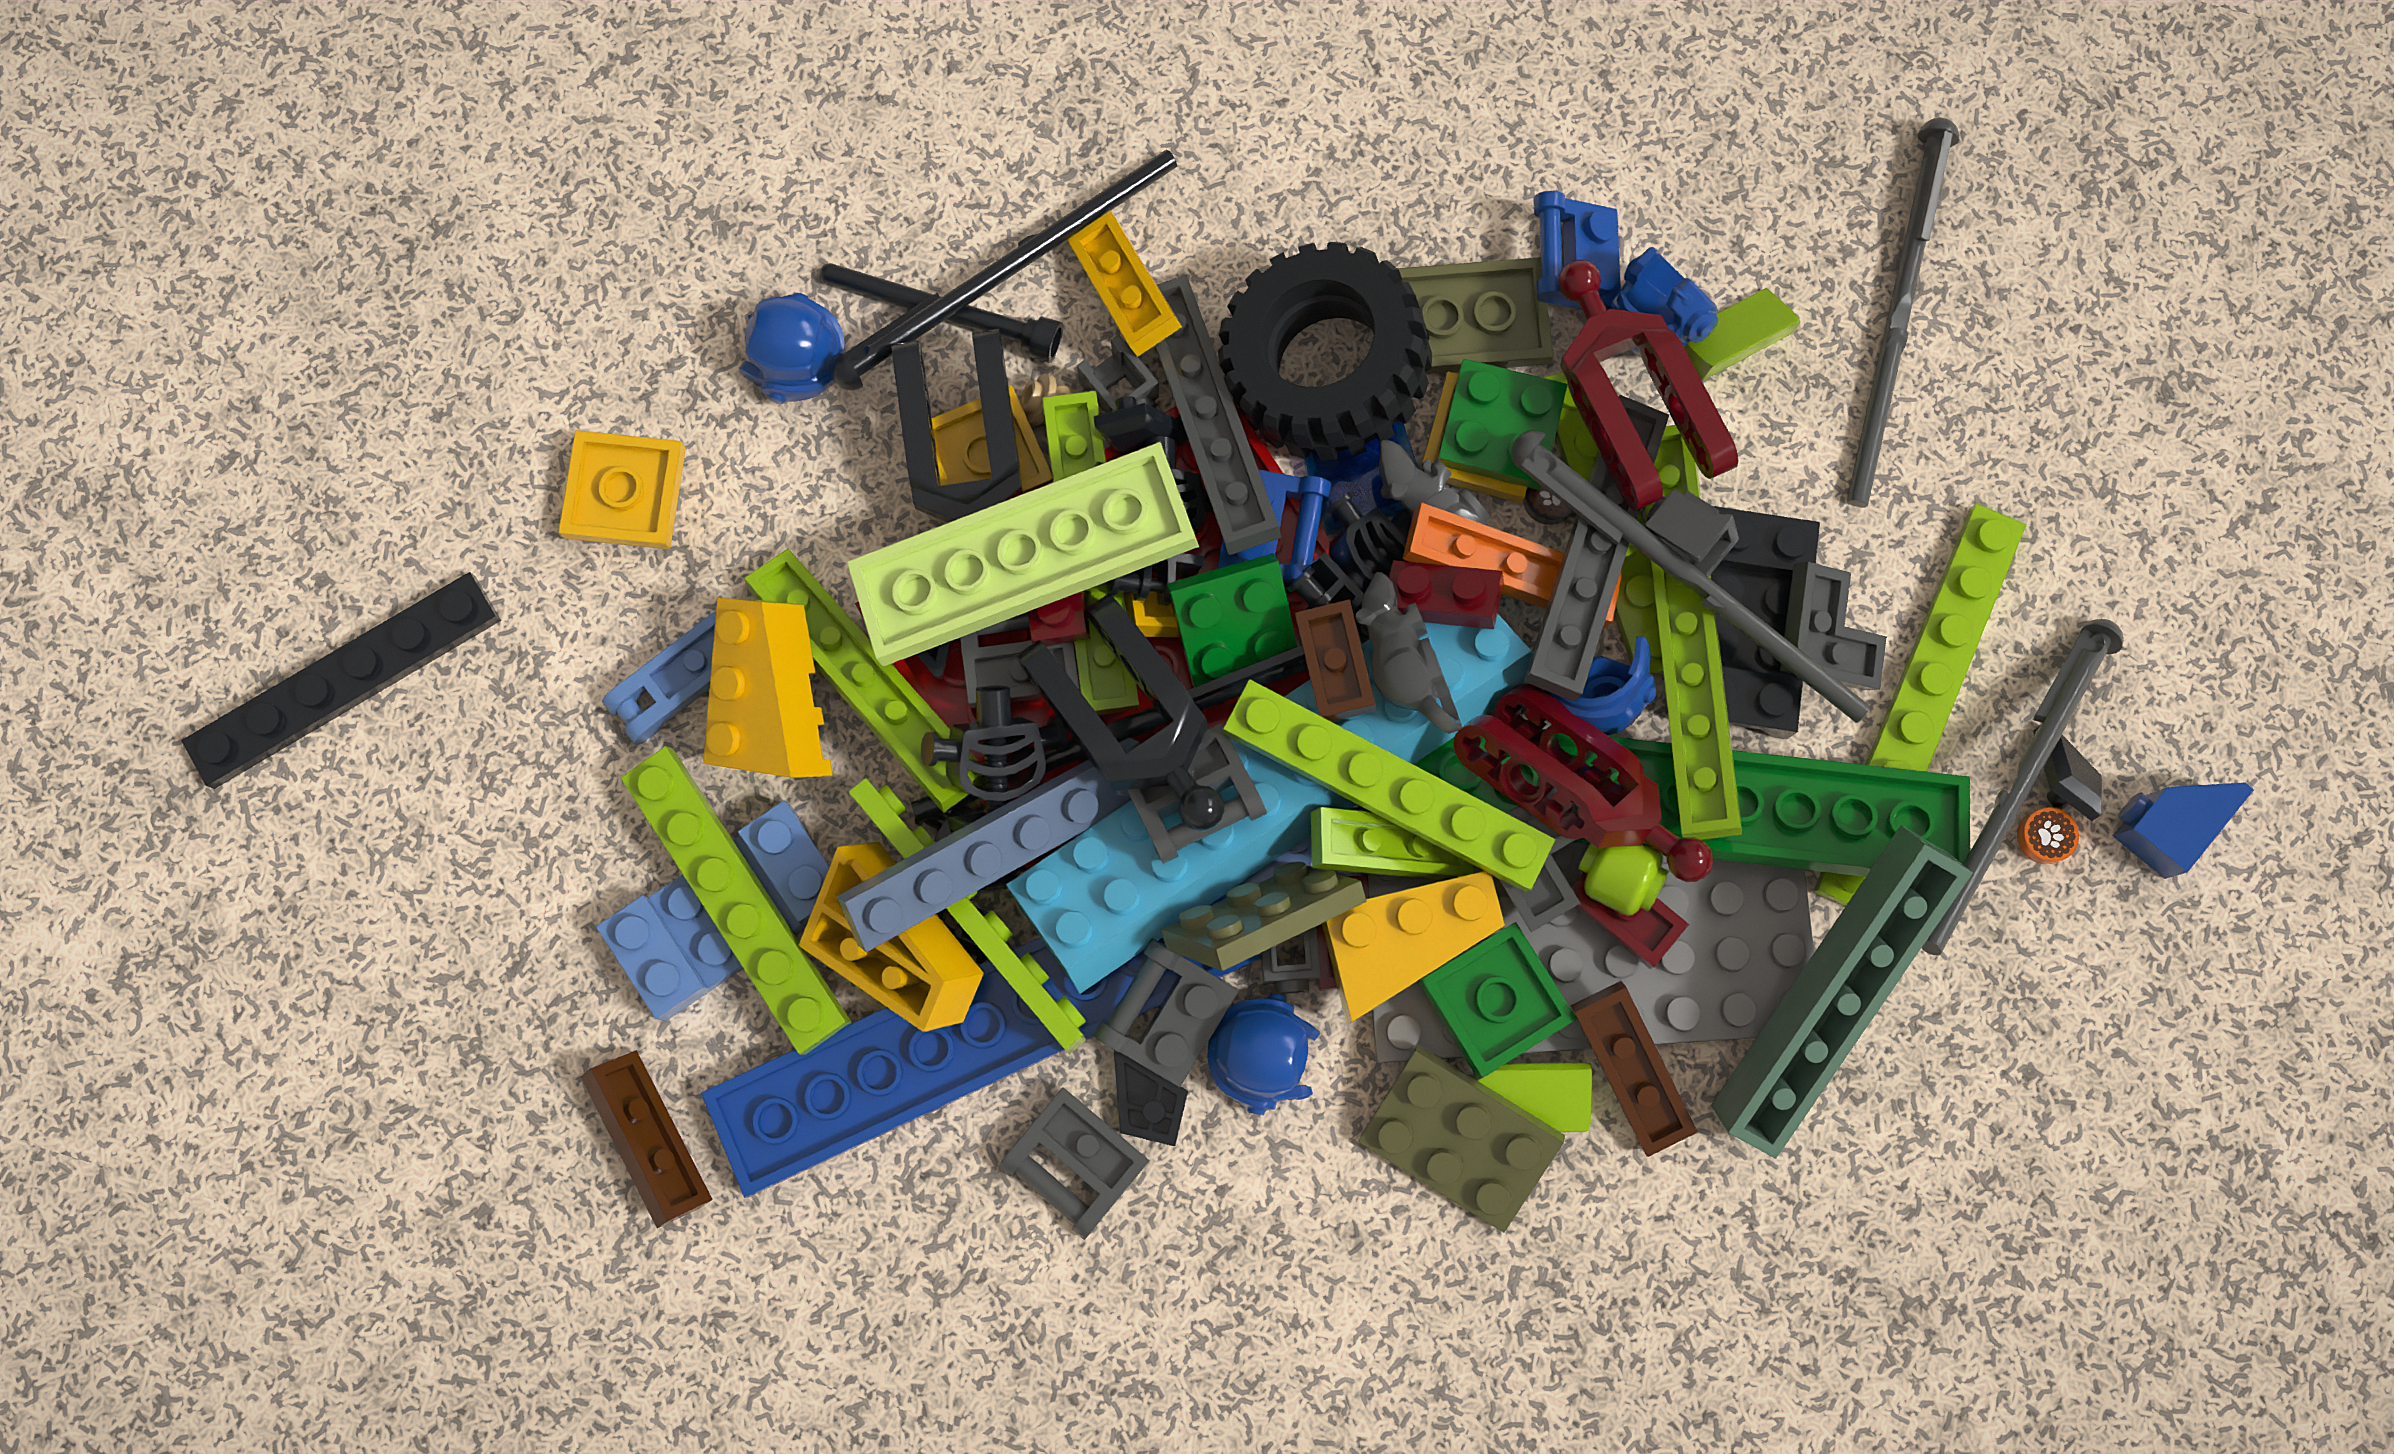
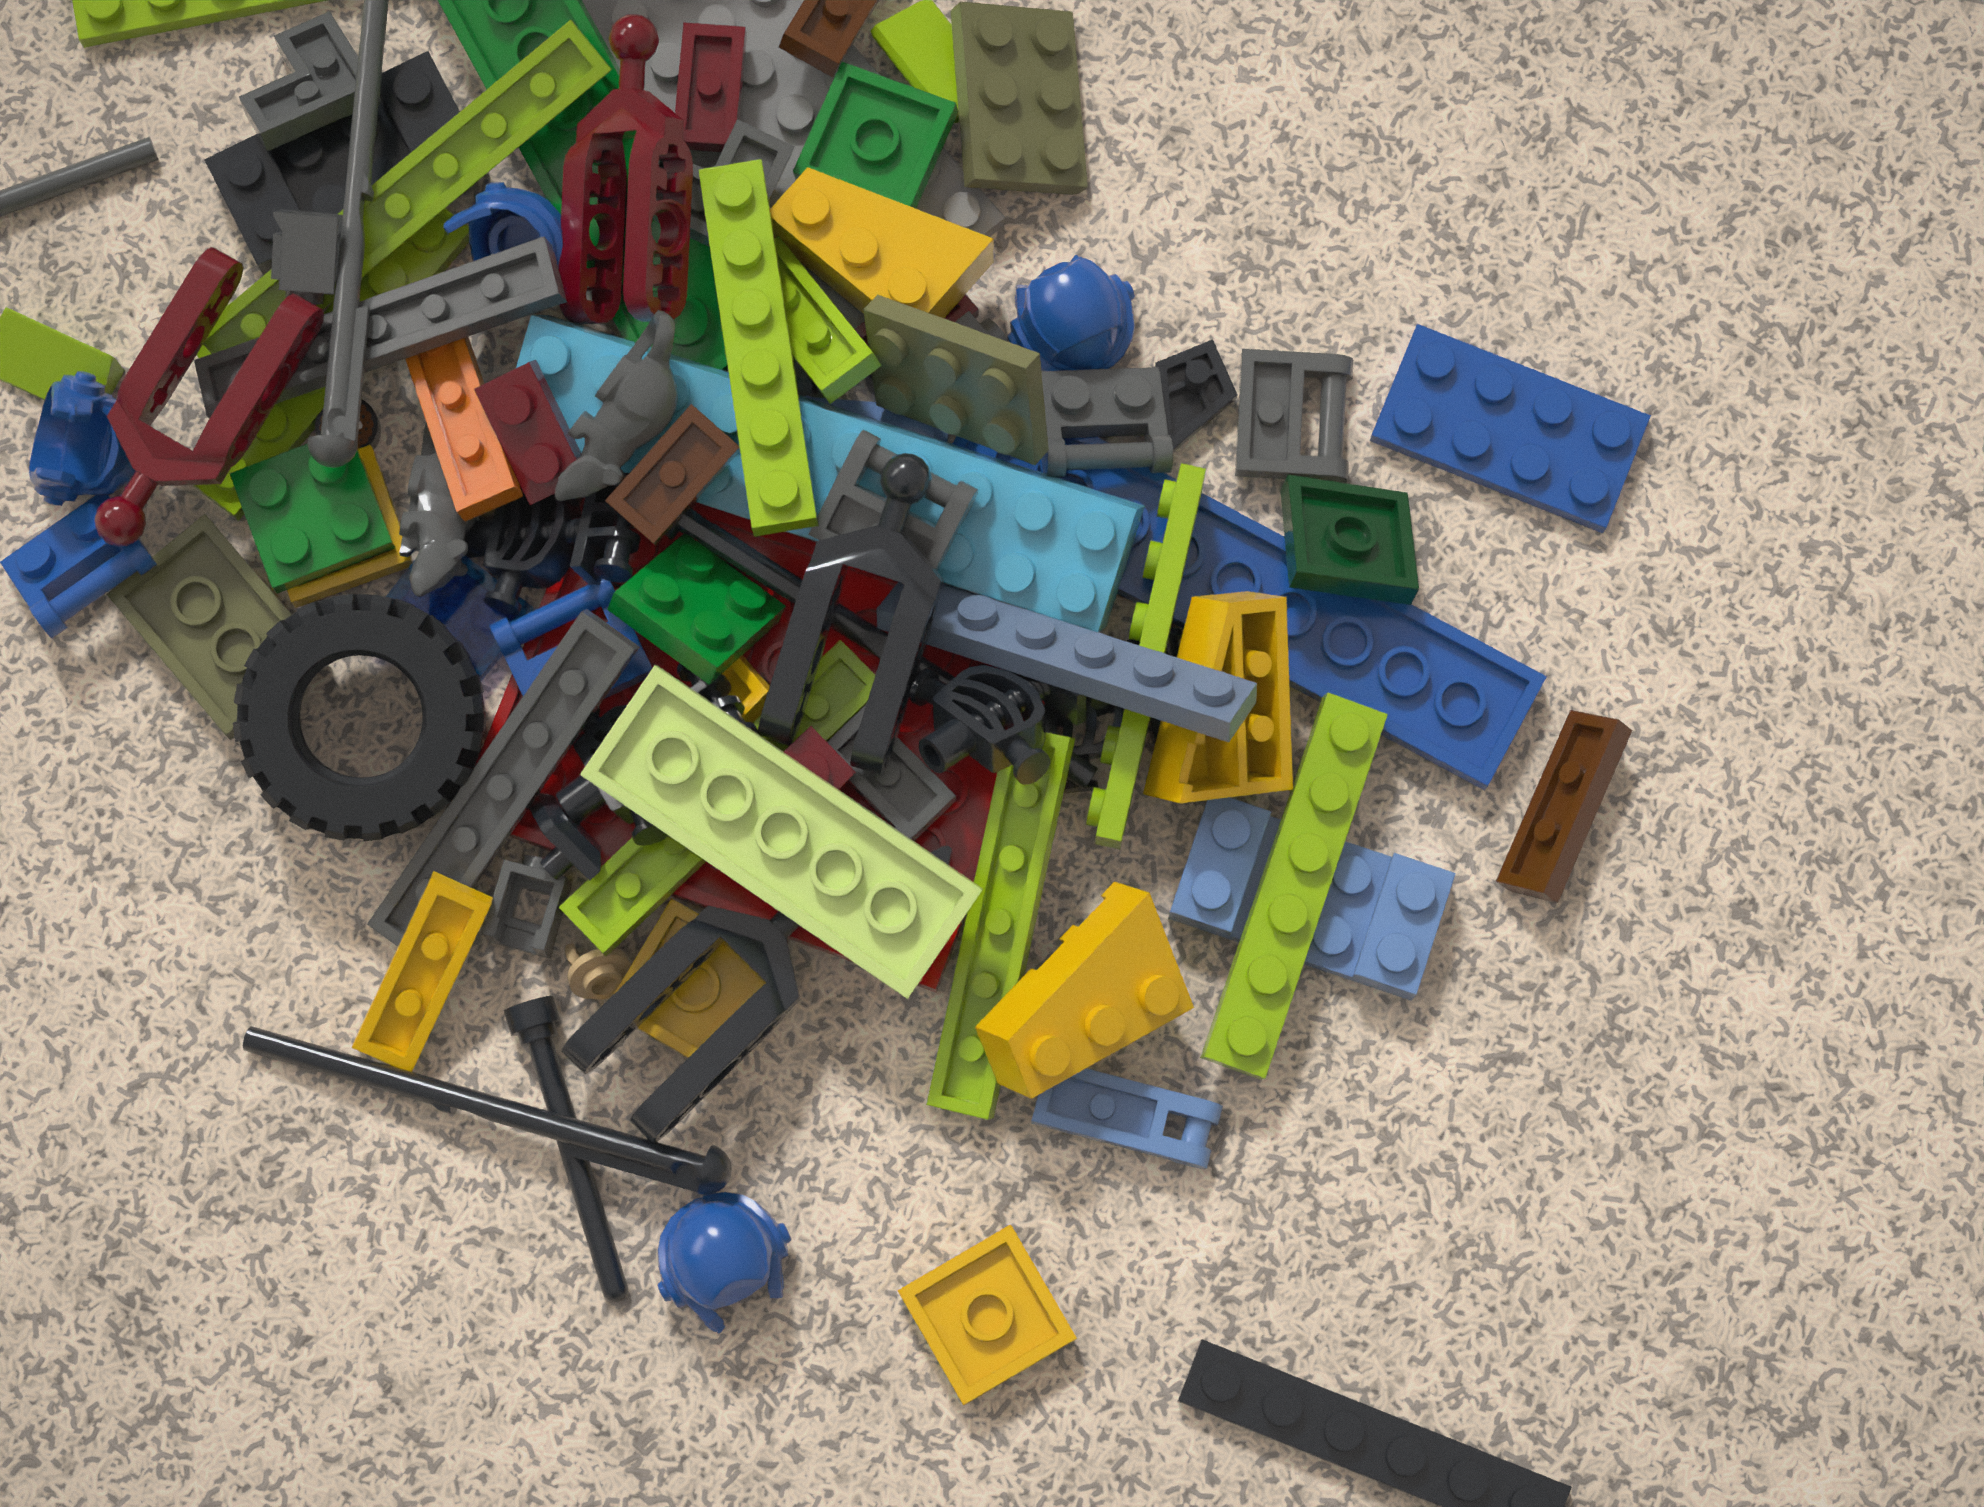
camera: 125 degrees left, 0 degrees up
(946, 1126) = (1349, 540): none -> dark green plate
(947, 1320) = (1510, 428): none -> blue plate
(1624, 876) = (690, 90): lime head -> none

